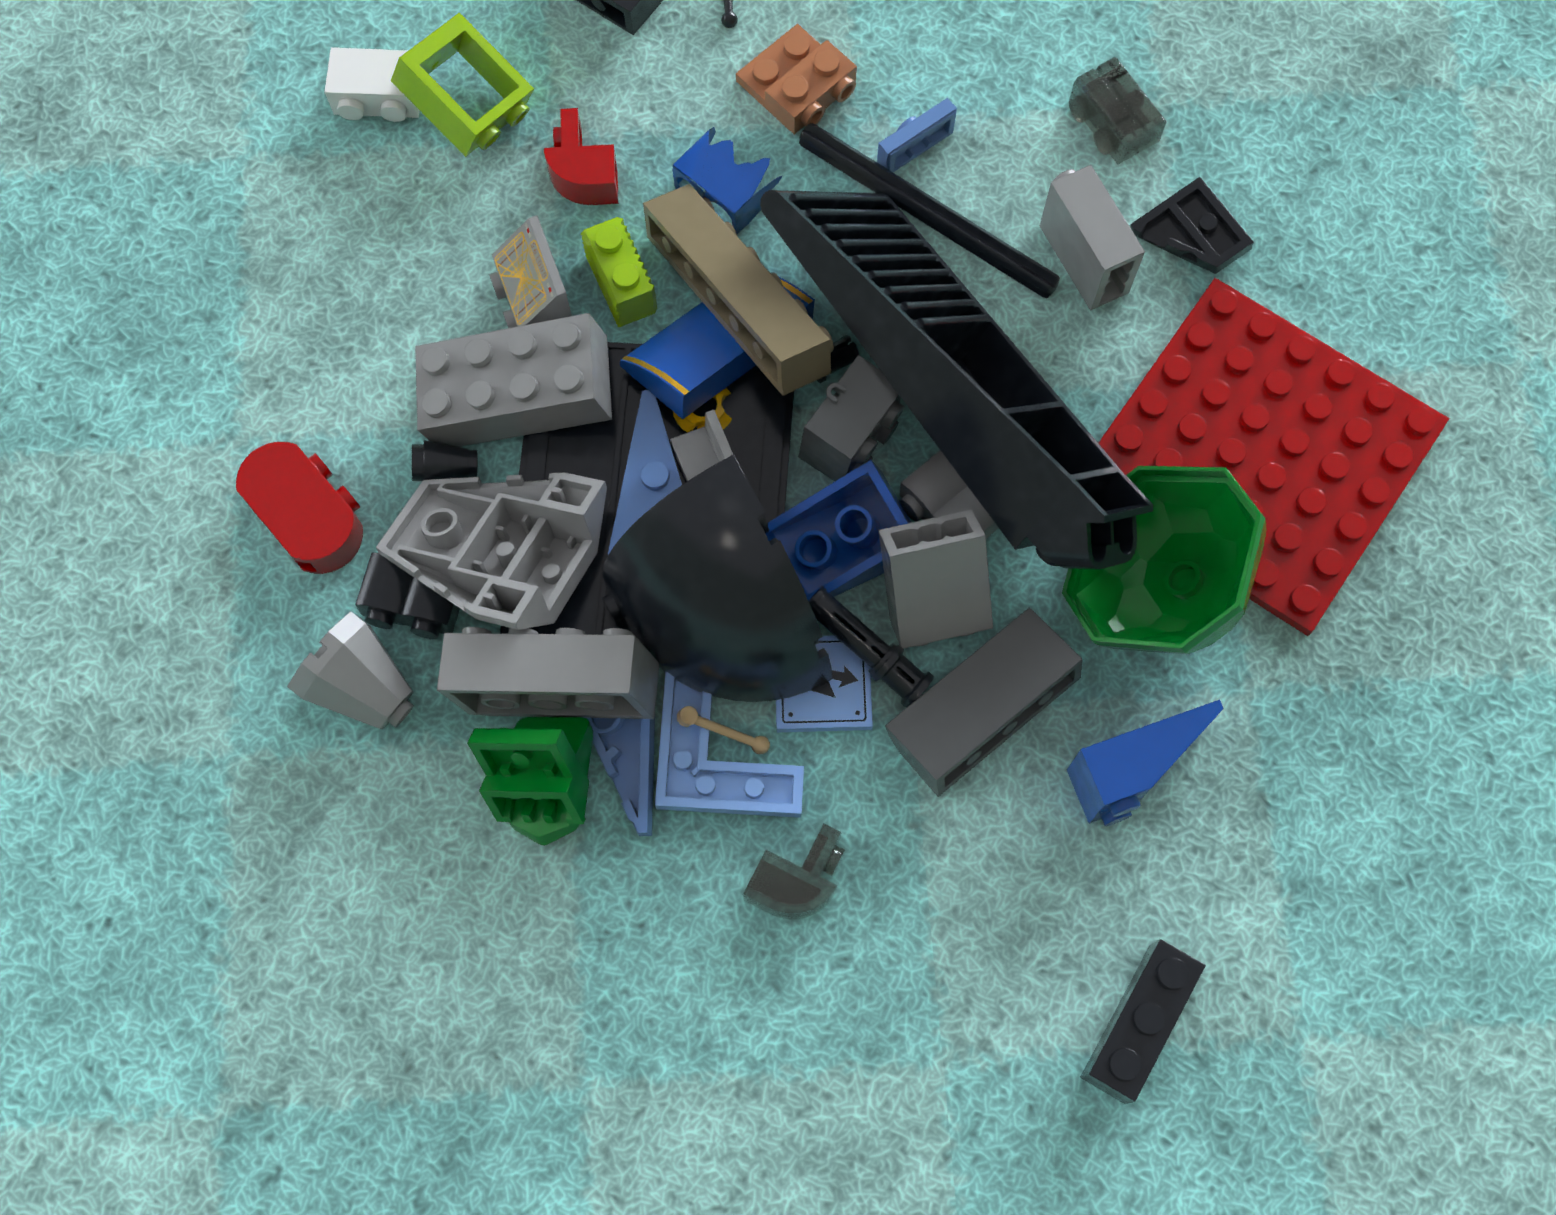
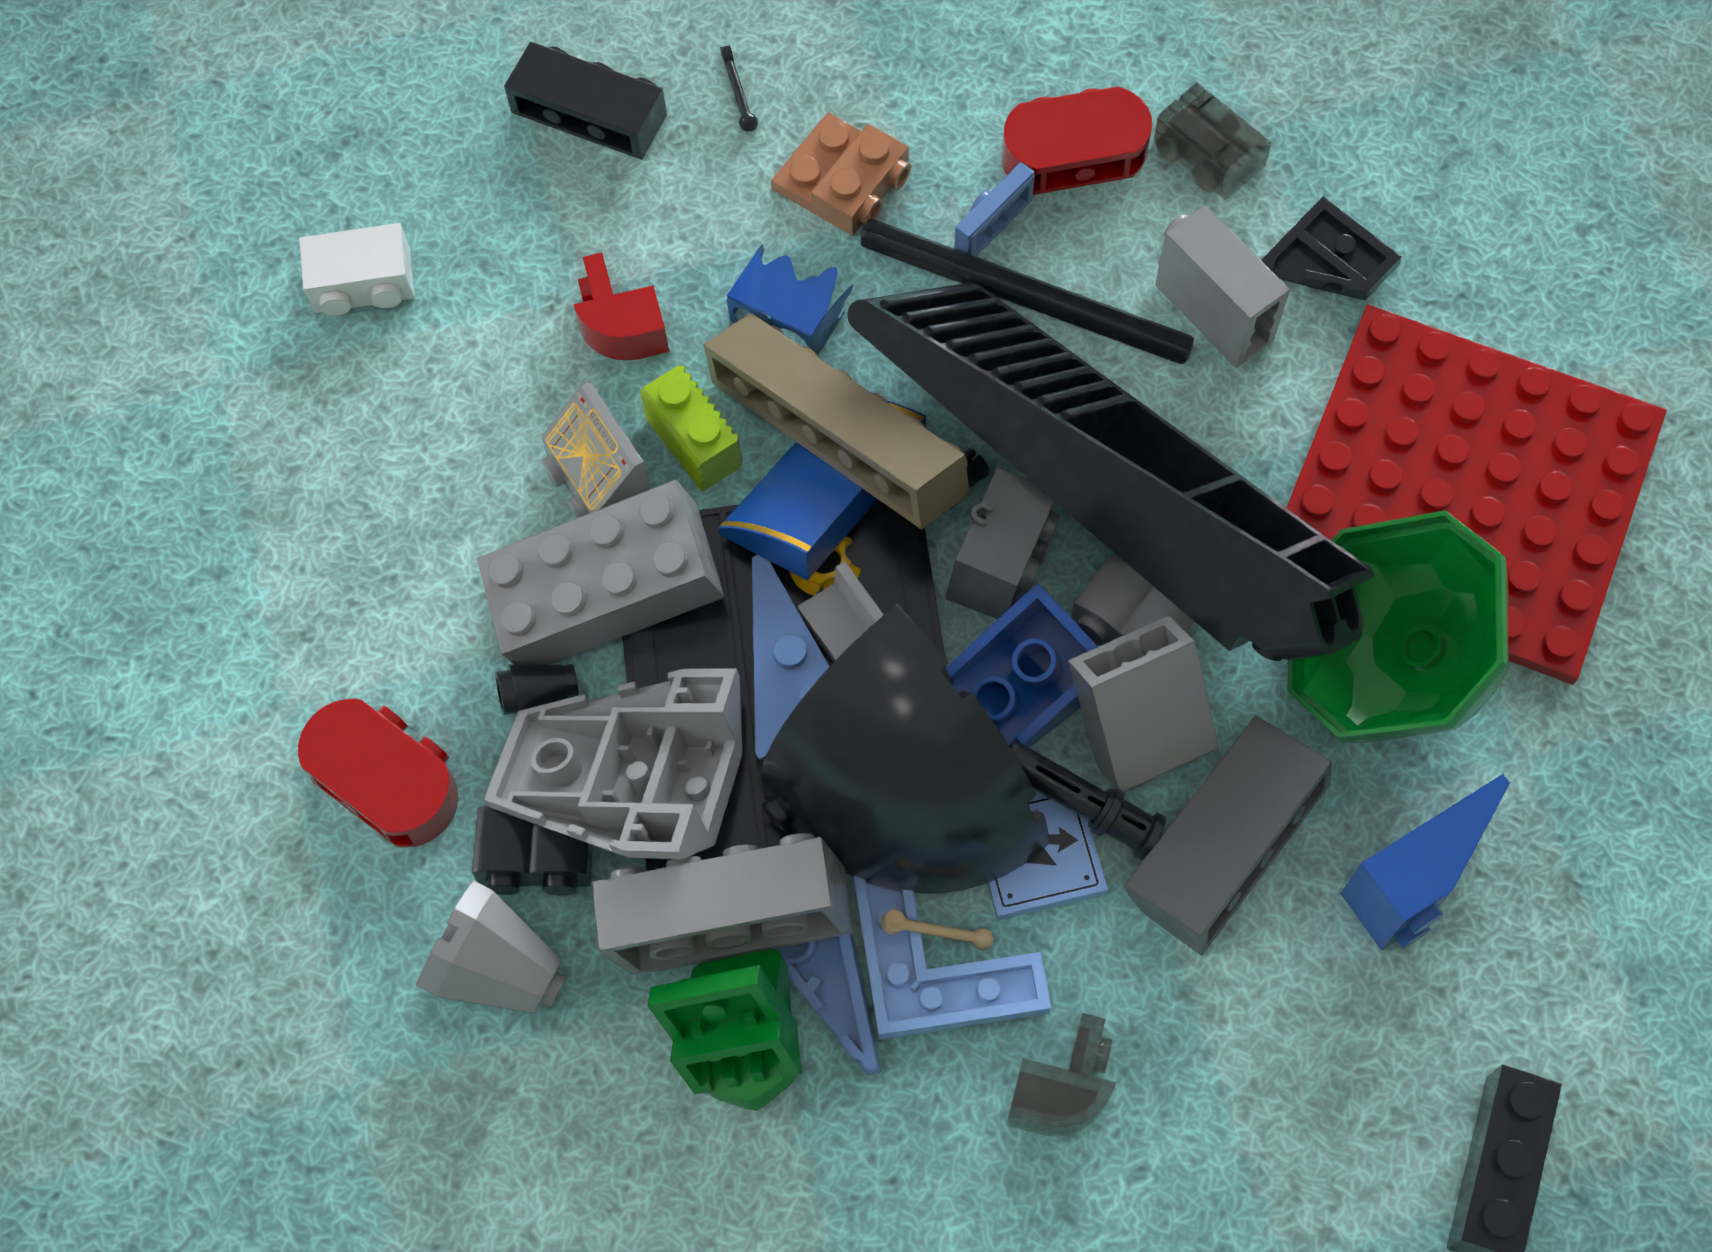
camera: 10 degrees left, 5 degrees down
(460, 36) = (442, 280): lime window -> none
(1003, 86) = (1078, 138): none -> red brick

